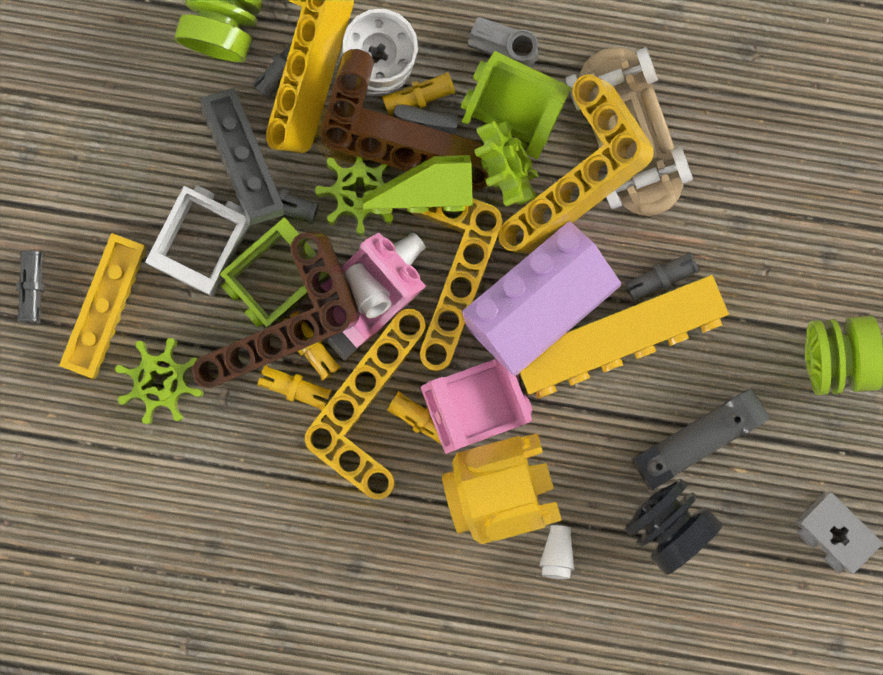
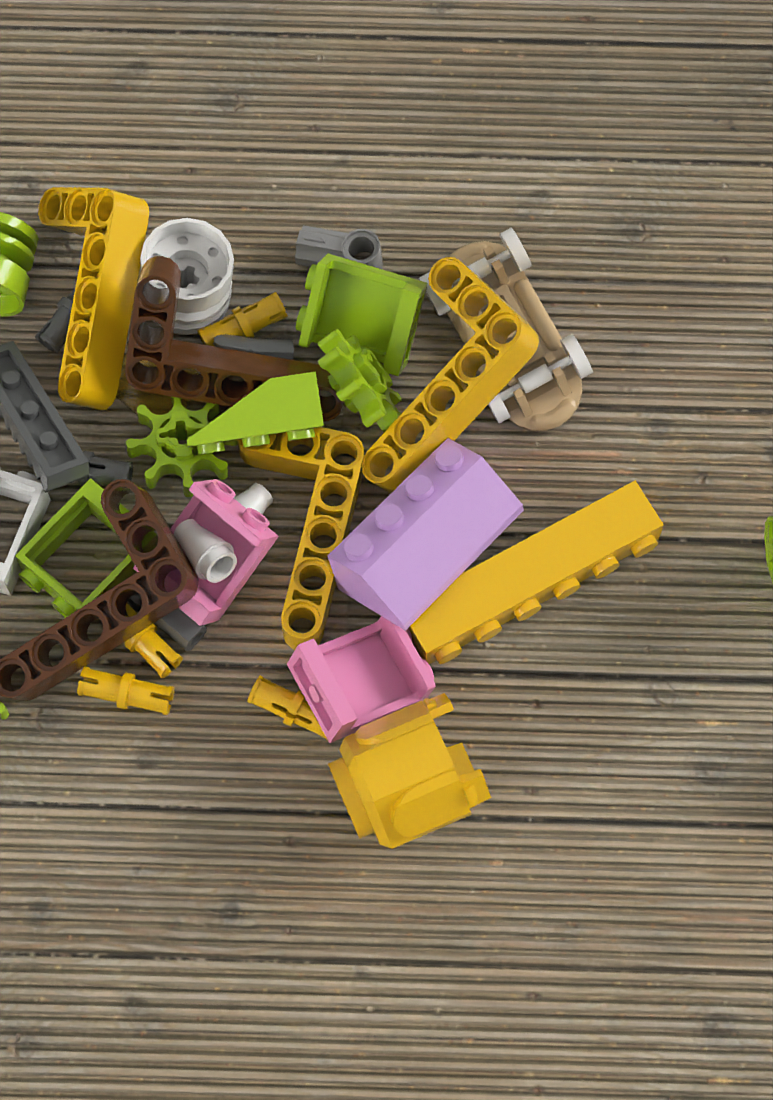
camera: 10 degrees left, 15 degrees down
(360, 402) = (214, 694): yellow beam -> none
(558, 554) = (493, 856): white cone -> none
(662, 276) = (573, 496): dark grey pin -> none
(673, 527) = (636, 793): black wheel -> none
(700, 439) = (693, 654): dark grey piece -> none

